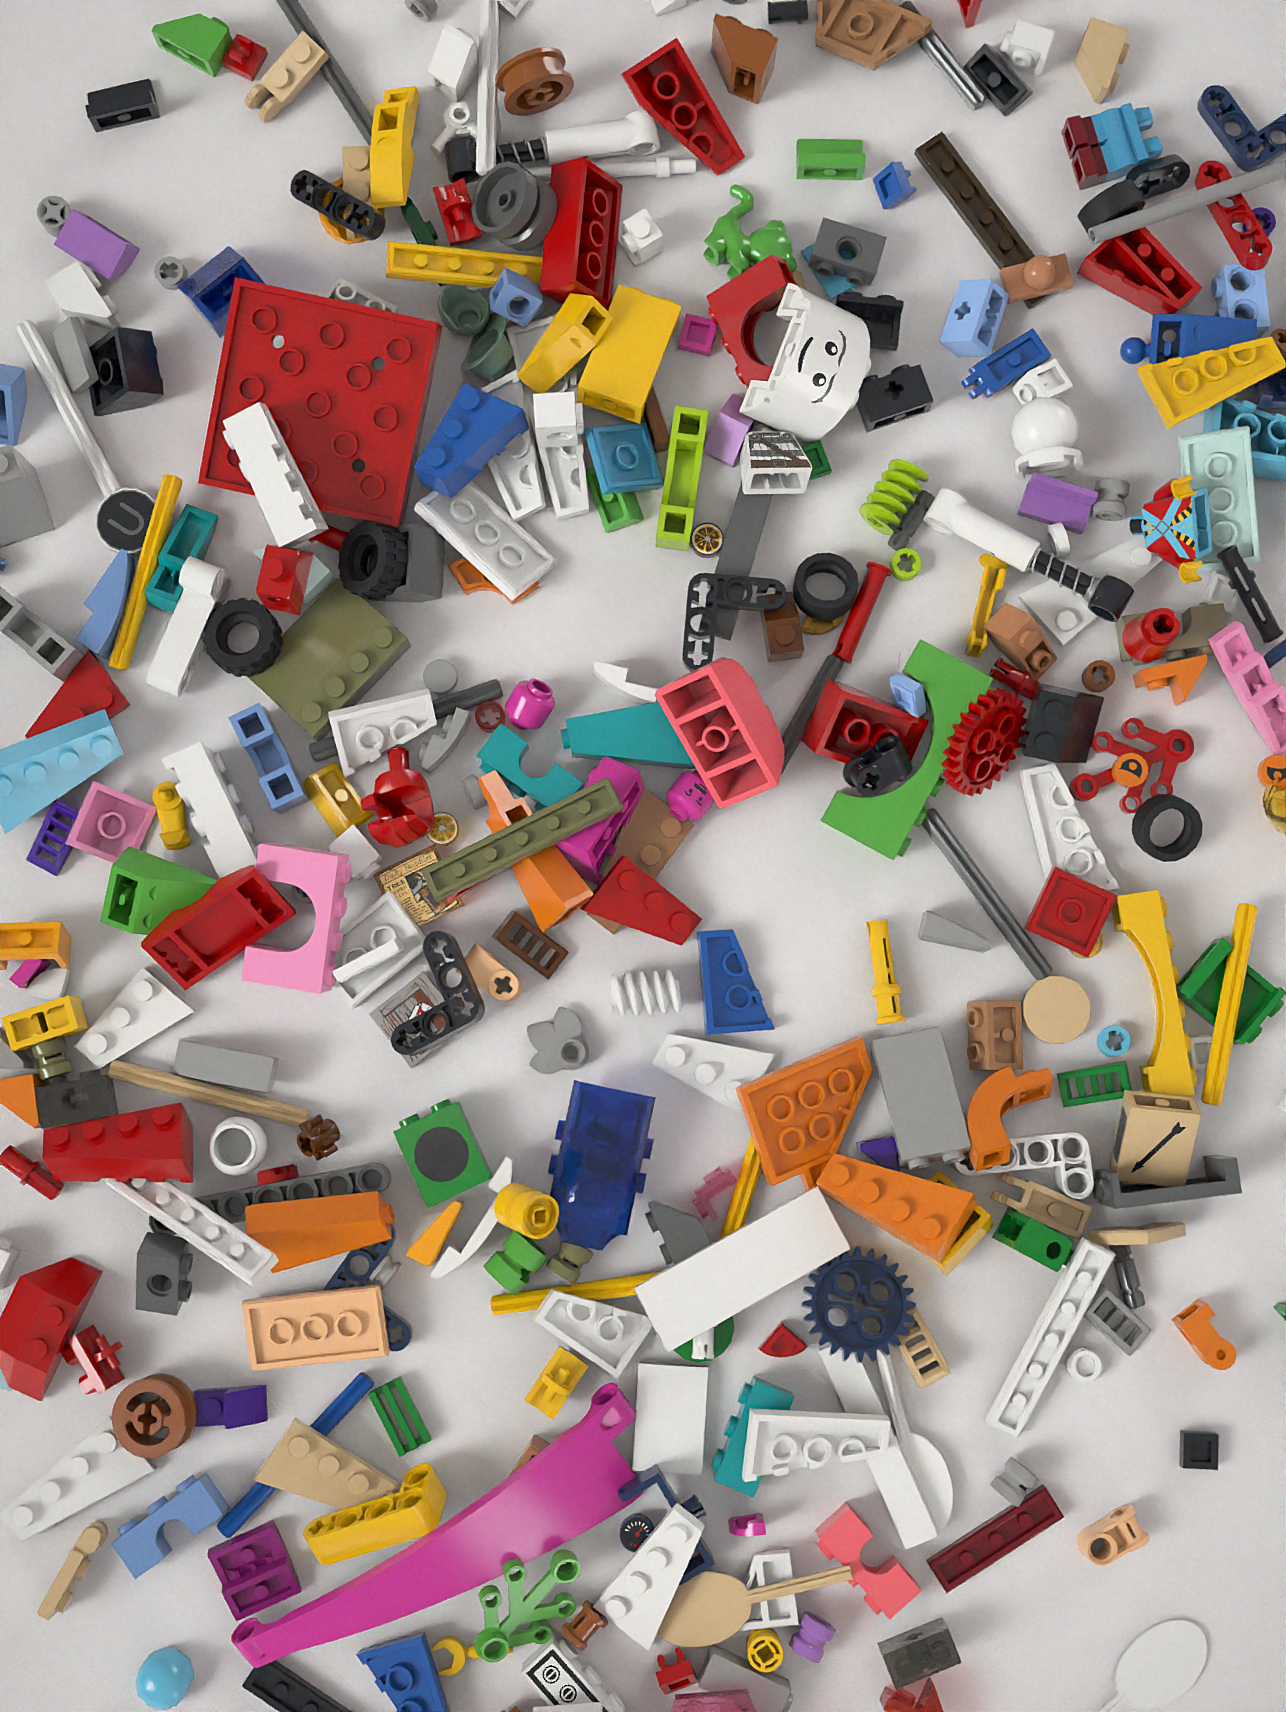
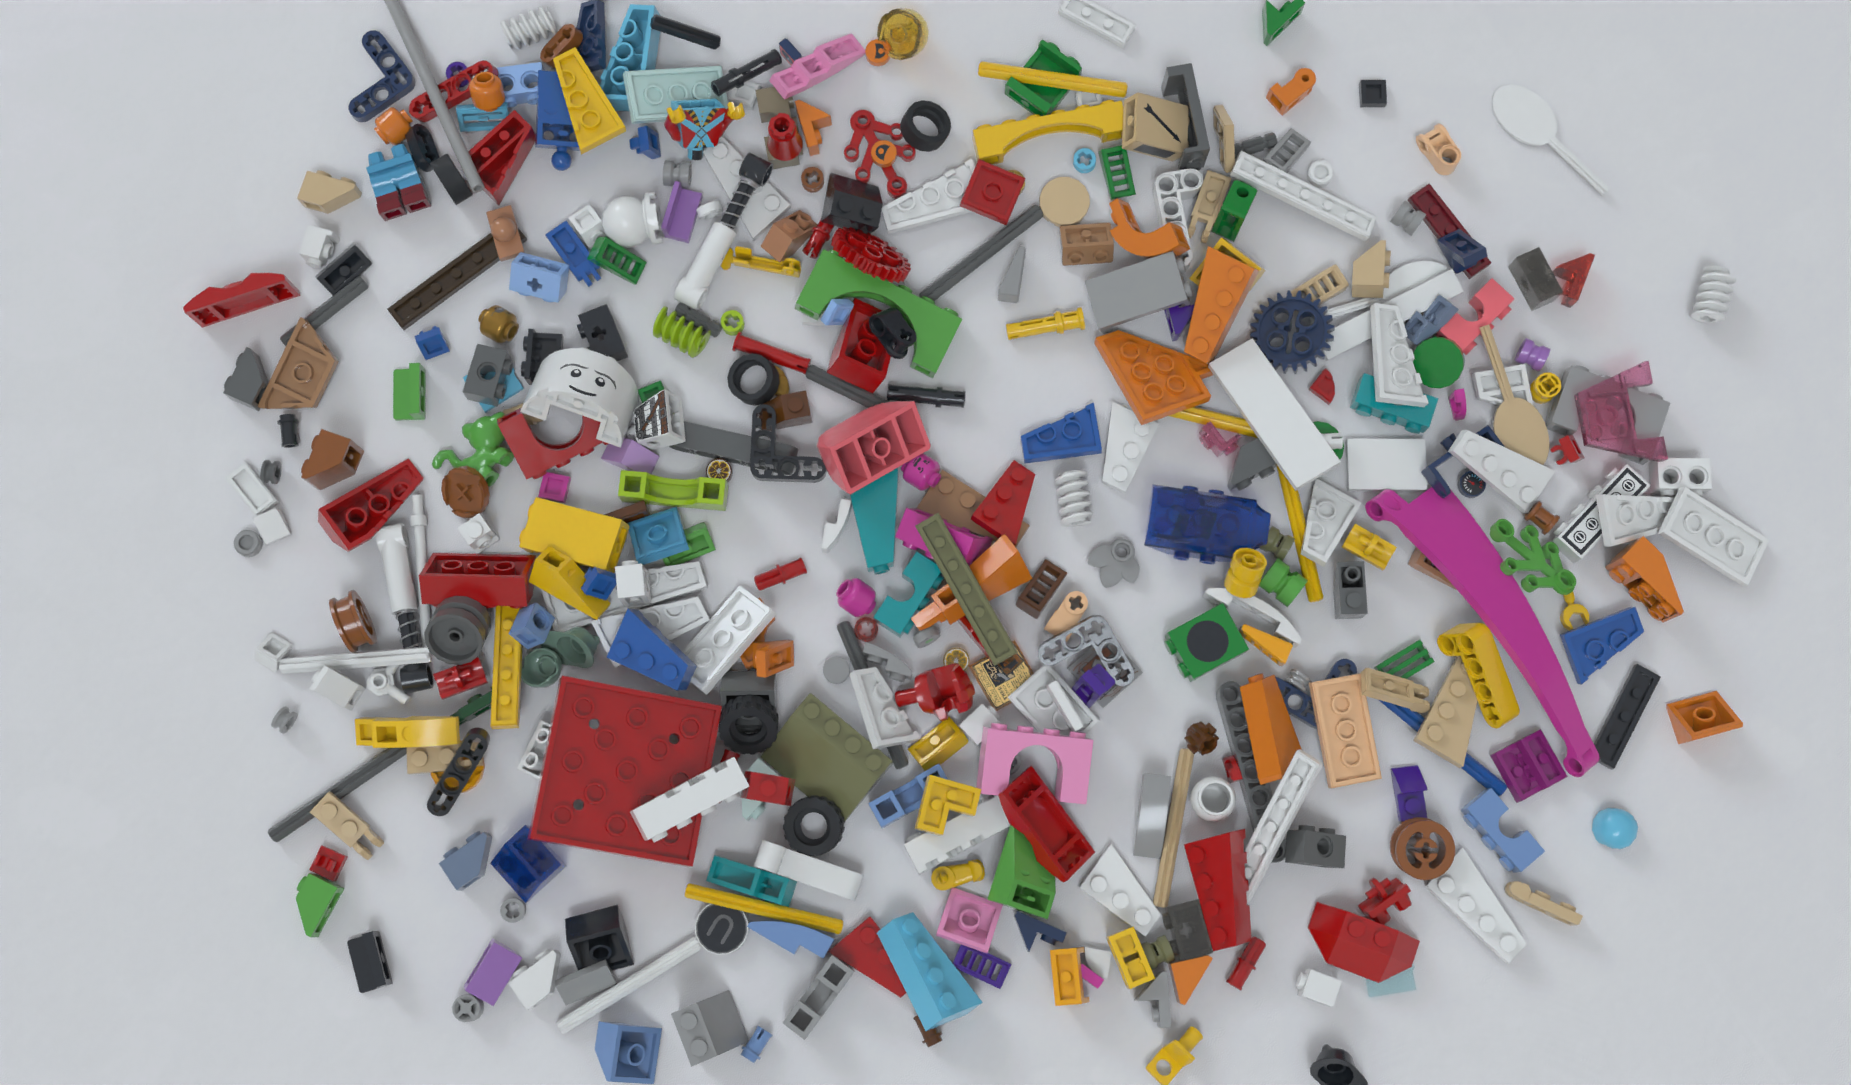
camera: 90 degrees left, 5 degrees down
(88, 924) = (1030, 926): none -> dark blue slope
(229, 219) = (469, 862): none -> sand blue slope
(256, 791) = (940, 797): none -> yellow plate
(361, 1396) = (1394, 690): none -> tan hinge
(394, 1002) = (1093, 685): none -> dark purple slope
(457, 594) = (772, 657): none -> orange slope
(498, 1351) = (1350, 590): none -> dark grey slope
(561, 375) = (599, 583): none -> blue tile
(567, 611) = (780, 574): none -> red axle
(694, 222) = (465, 491): none -> dark orange tile
(794, 808) = (926, 395): none -> black pin
(806, 1503) = (1438, 362): none -> green tile
(859, 1491) = (1424, 326): none -> sand blue slope
(914, 267) = (498, 324): none -> pearl gold head
(937, 1419) = (1369, 274): none -> tan slope
(963, 1551) = (1461, 250): none -> dark blue slope
(1006, 392) = (596, 257): none -> green slope
(1155, 462) = (646, 142): none -> blue tile
(1188, 139) = (393, 126): none -> orange head
(1202, 252) = (470, 112): none -> medium azure tile
(1227, 251) = (487, 91): none -> orange head

